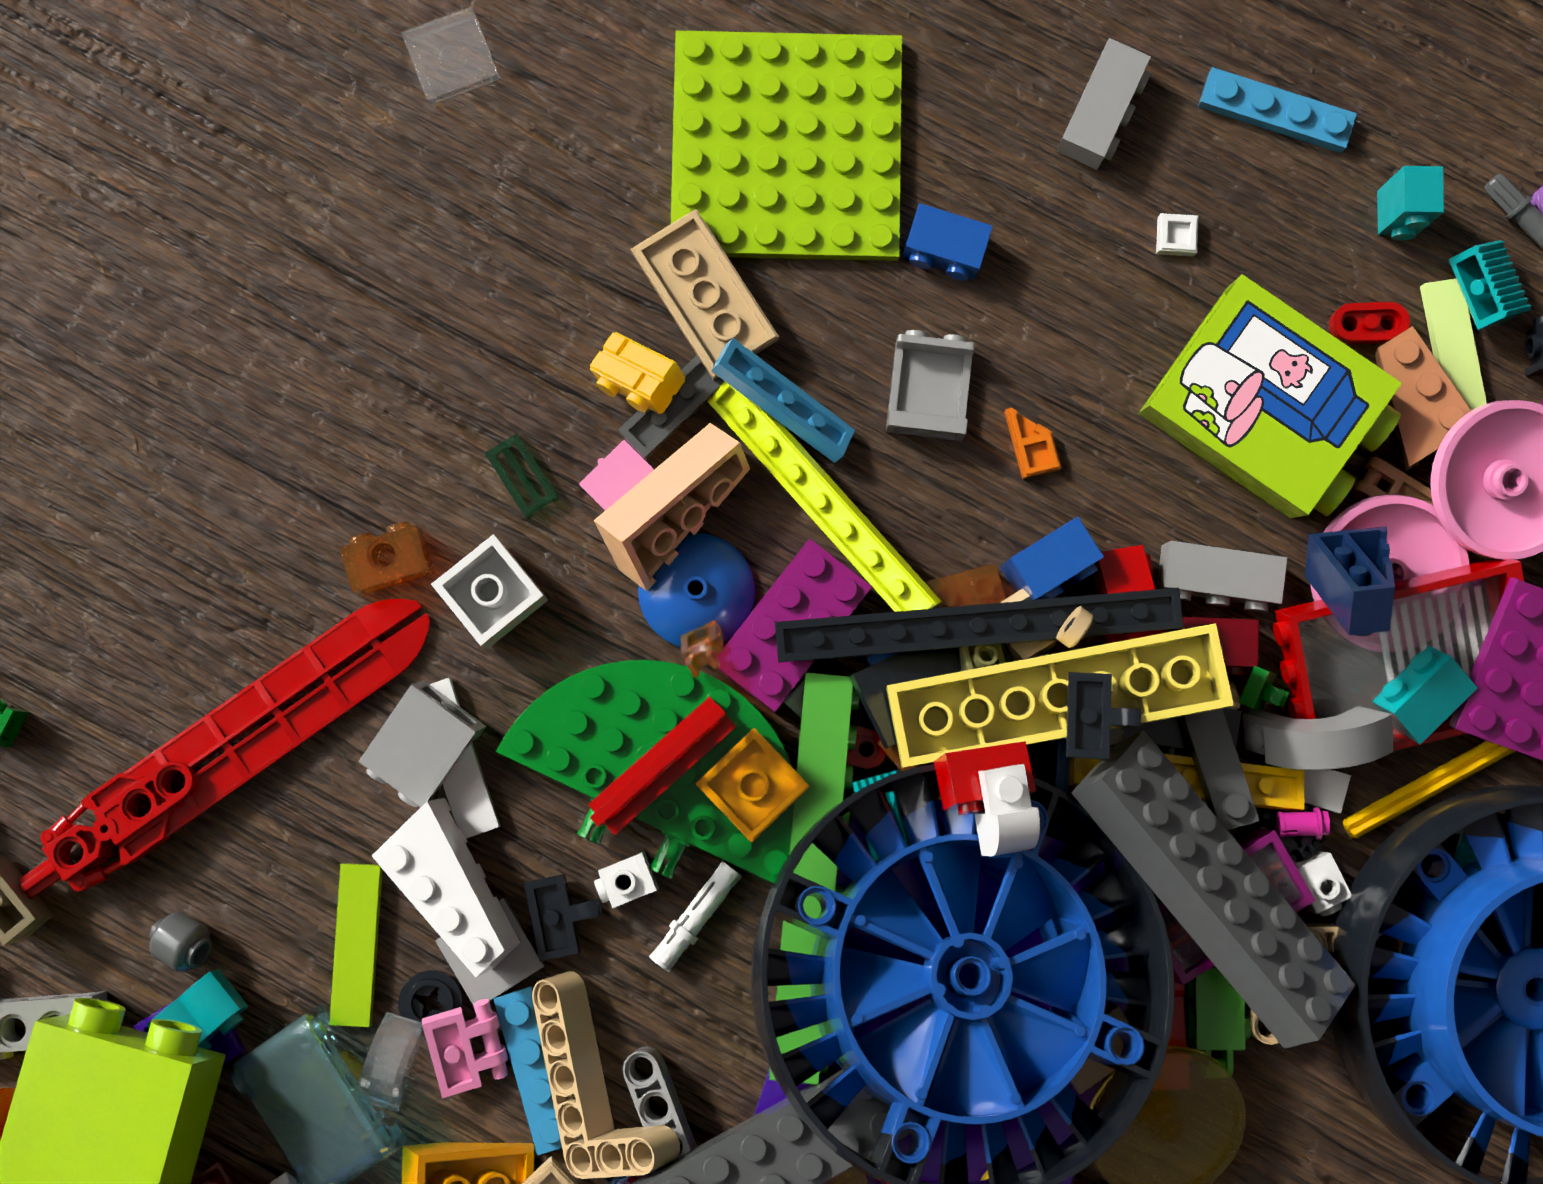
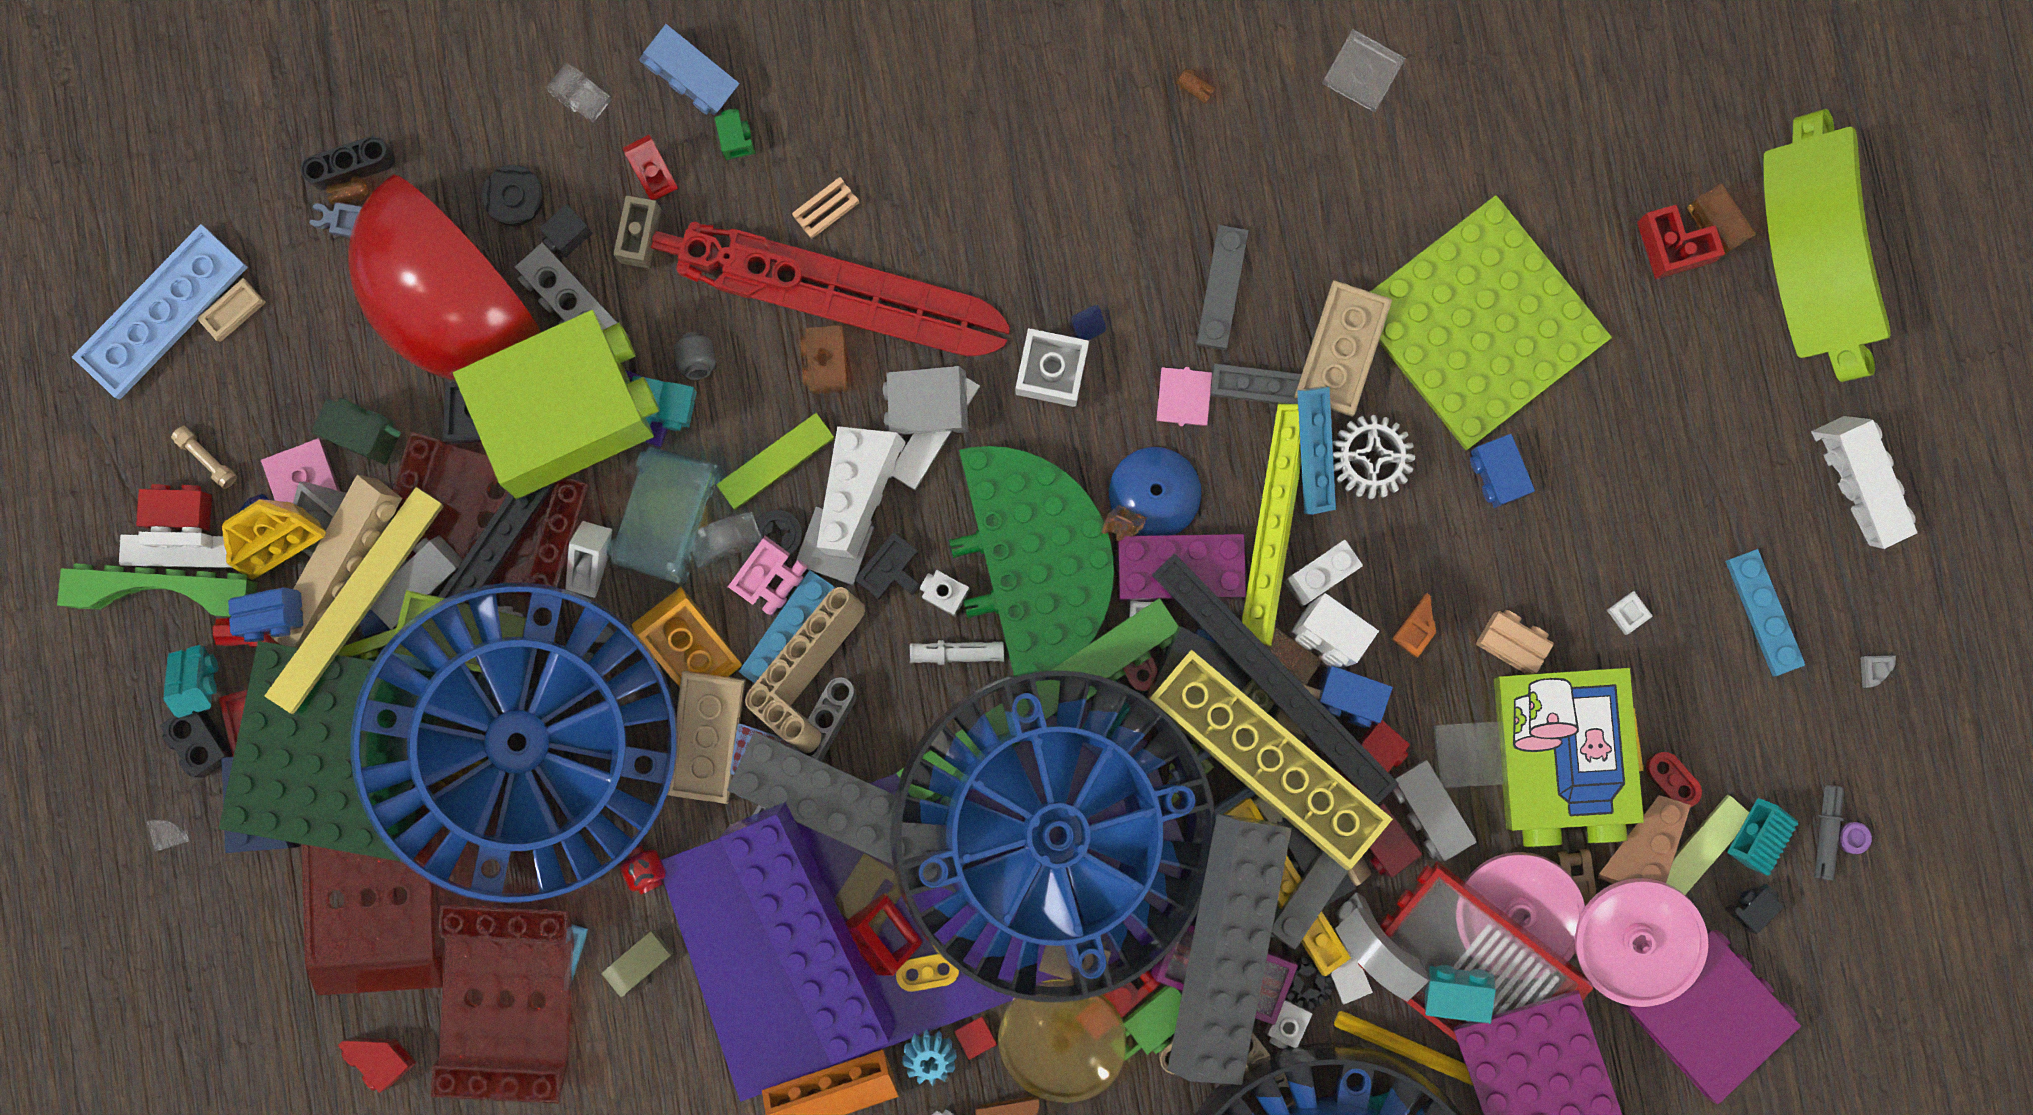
camera: 60 degrees right, 0 degrees up
(127, 686) = (820, 197): none -> light nougat tile
(317, 813) = (828, 341): none -> clear orange brick
(326, 225) = (1193, 84): none -> clear orange pin
(410, 561) = (1028, 305): clear orange brick -> none
(476, 520) = (1088, 323): none -> clear blue slope
(539, 503) = (1129, 353): clear green tile -> none
(548, 362) = (1222, 287): none -> dark grey plate
(636, 373) = (1258, 346): yellow brick -> none
(661, 766) = (1031, 555): red fence -> none
(670, 503) = (1196, 433): light nougat wedge -> none
(752, 785) = (1064, 620): light orange tile -> none
(820, 342) = (1385, 456): none -> white gear
(910, 492) = (1323, 573): none -> white brick
(930, 386) = (1402, 533): light grey panel -> none
(960, 779) = (1183, 750): red brick -> none
(979, 530) = (1333, 632): none -> white brick
(1008, 818) = (1171, 782): white brick -> none
(1075, 627) = (1320, 737): tan tile -> none
(1091, 716) = (1273, 786): black plate -> none
(1105, 104) = (1674, 500): light grey brick -> none
(1121, 364) = (1514, 642): none -> light nougat brick
(1192, 496) = (1468, 754): none -> clear tile
(1261, 689) = (1379, 890): green tile -> none
(1303, 823) = (1317, 982): dark pink pin -> none
(1353, 577) = (1495, 887): dark blue wedge -> none
(1410, 53) = (1876, 669): none -> light grey tile
(1410, 201) = (1772, 742): teal brick -> none

